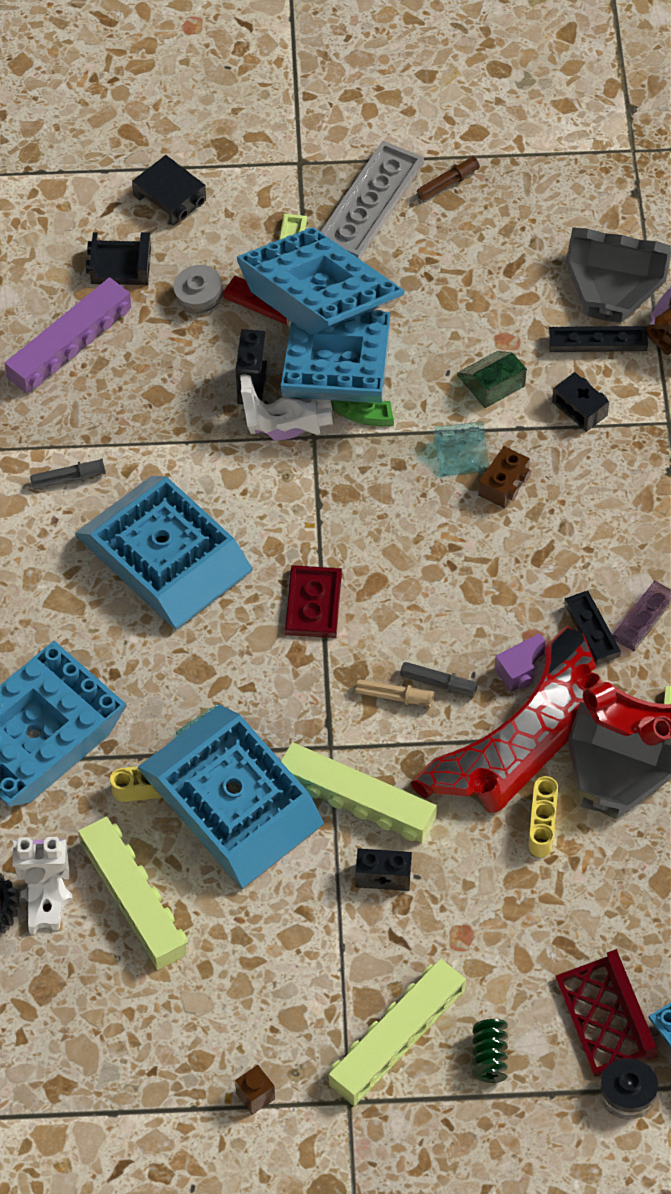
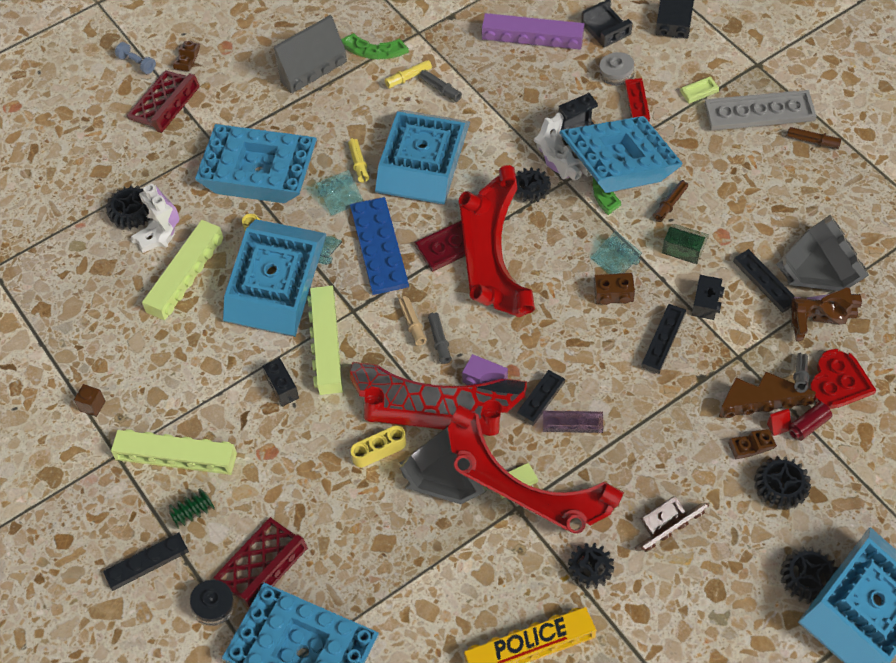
camera: 60 degrees right, 0 degrees up
(21, 495) = (402, 76): none -> light yellow axle
(113, 620) = (359, 164): none -> light yellow axle
(149, 666) = (339, 192): none -> clear light blue hinge
(257, 669) = (379, 246): none -> blue plate
(298, 470) = (532, 185): none -> black gear
(315, 281) = (665, 111): dark azure slope -> none
(319, 547) = (482, 234): none -> red panel
(430, 362) = (666, 206): none -> reddish brown axle
(522, 1136) = (145, 561): none -> black plate
(602, 472) = (663, 338): none -> black plate

